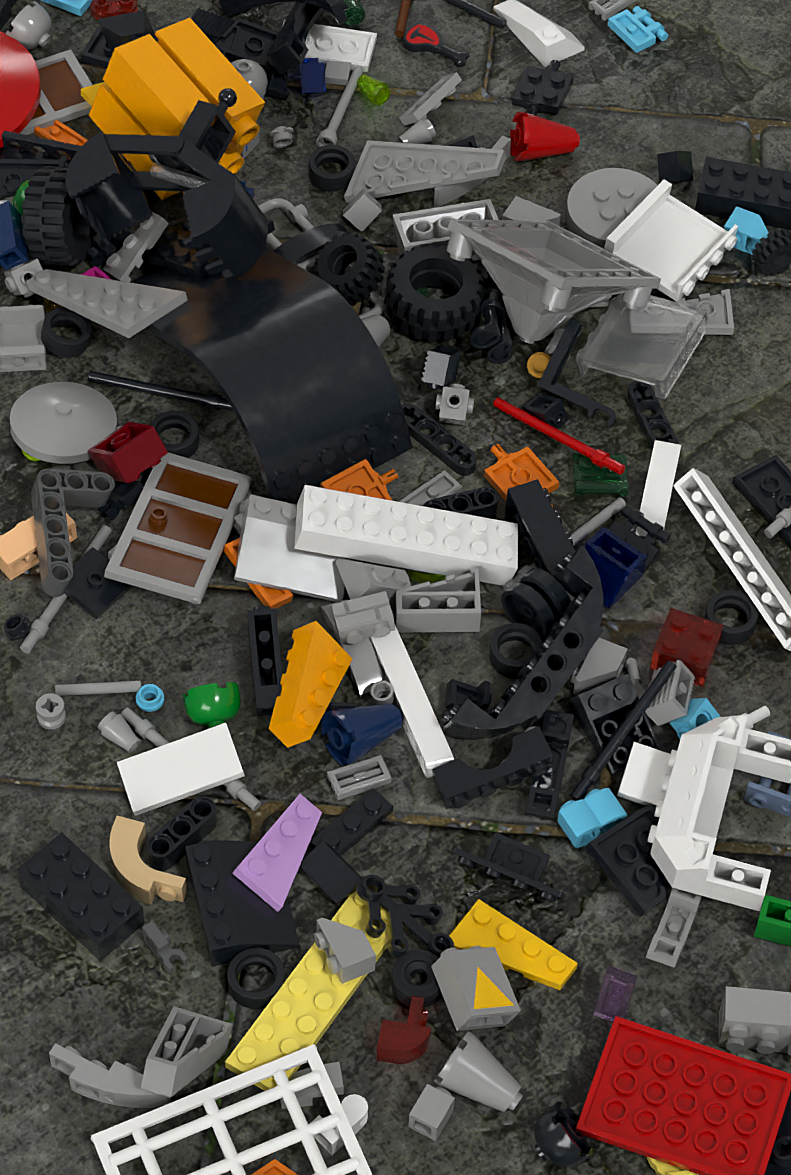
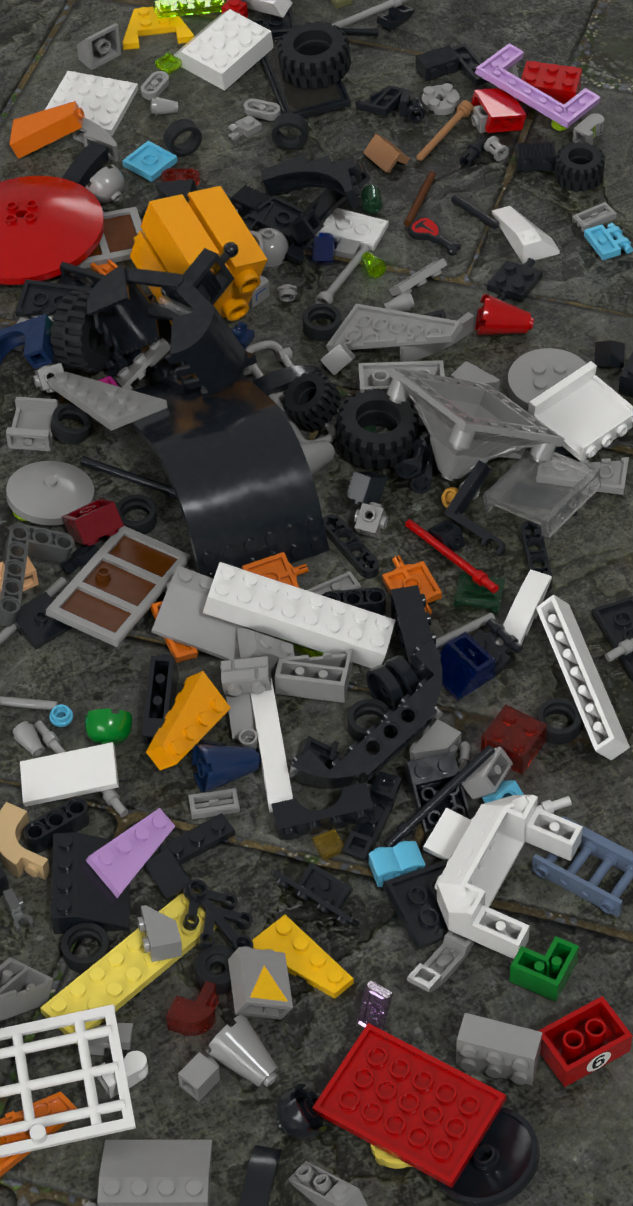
camera: 15 degrees right, 5 degrees down
(505, 806) = (328, 844): none -> clear yellow tile

